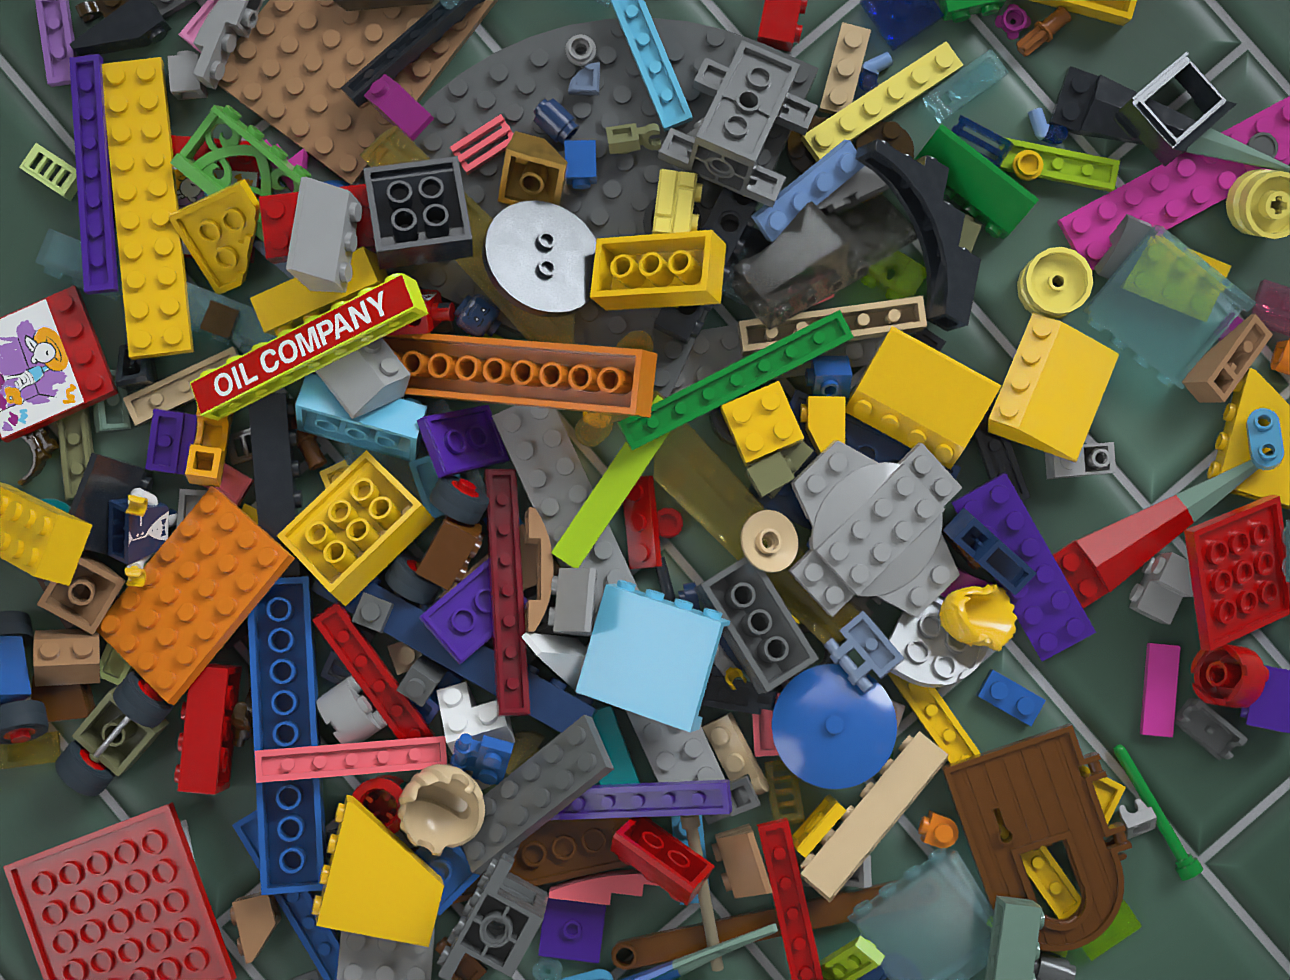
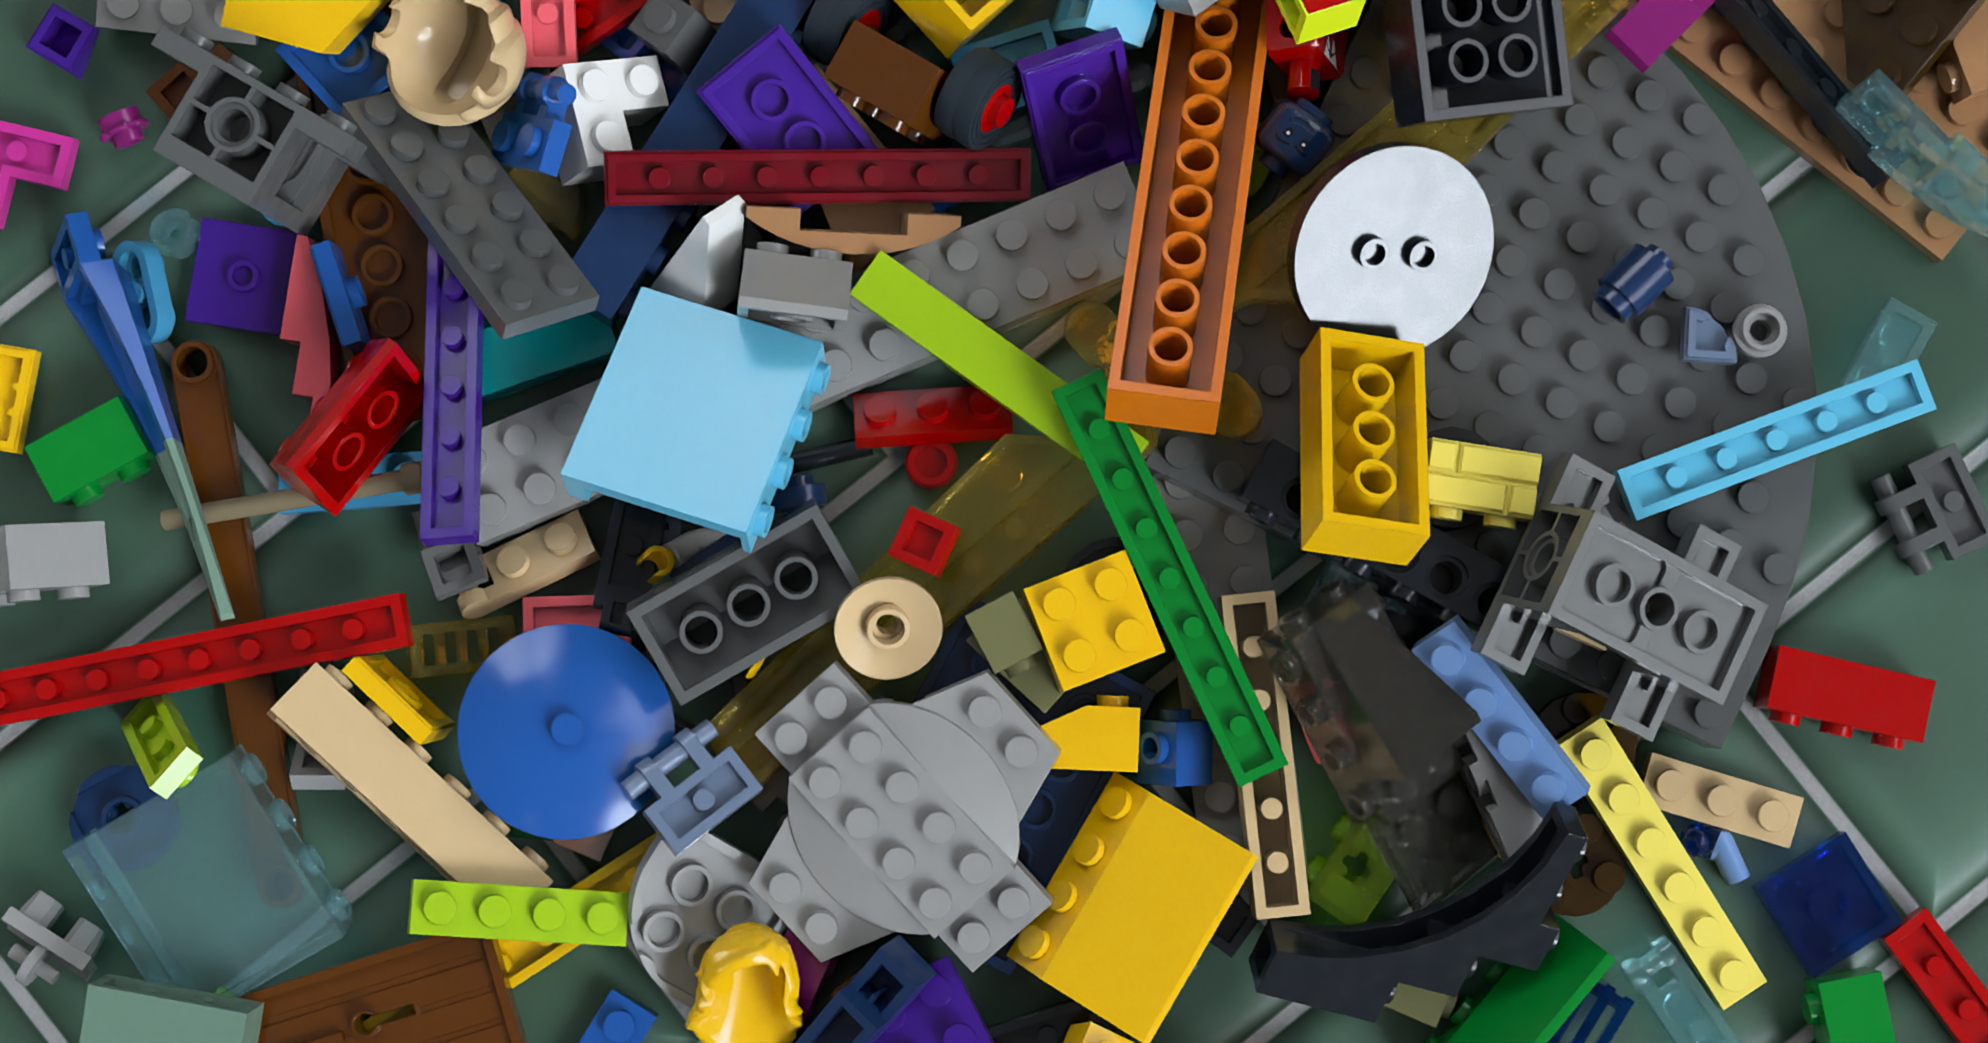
camera: 90 degrees right, 0 degrees up
(476, 135) = (1612, 147): coral tile -> none
(531, 171) = (1546, 236): pearl gold slope -> none
(581, 164) = (1558, 323): blue brick -> none
(583, 868) = (342, 294): none -> blue plate
(628, 138) = (1602, 408): olive plate -> none
(718, 522) = (924, 542): none -> red plate
(742, 861) = (343, 567): medium nougat slope -> none
(938, 830) = (381, 909): orange plate -> none
(939, 750) = (518, 913): none -> lime plate

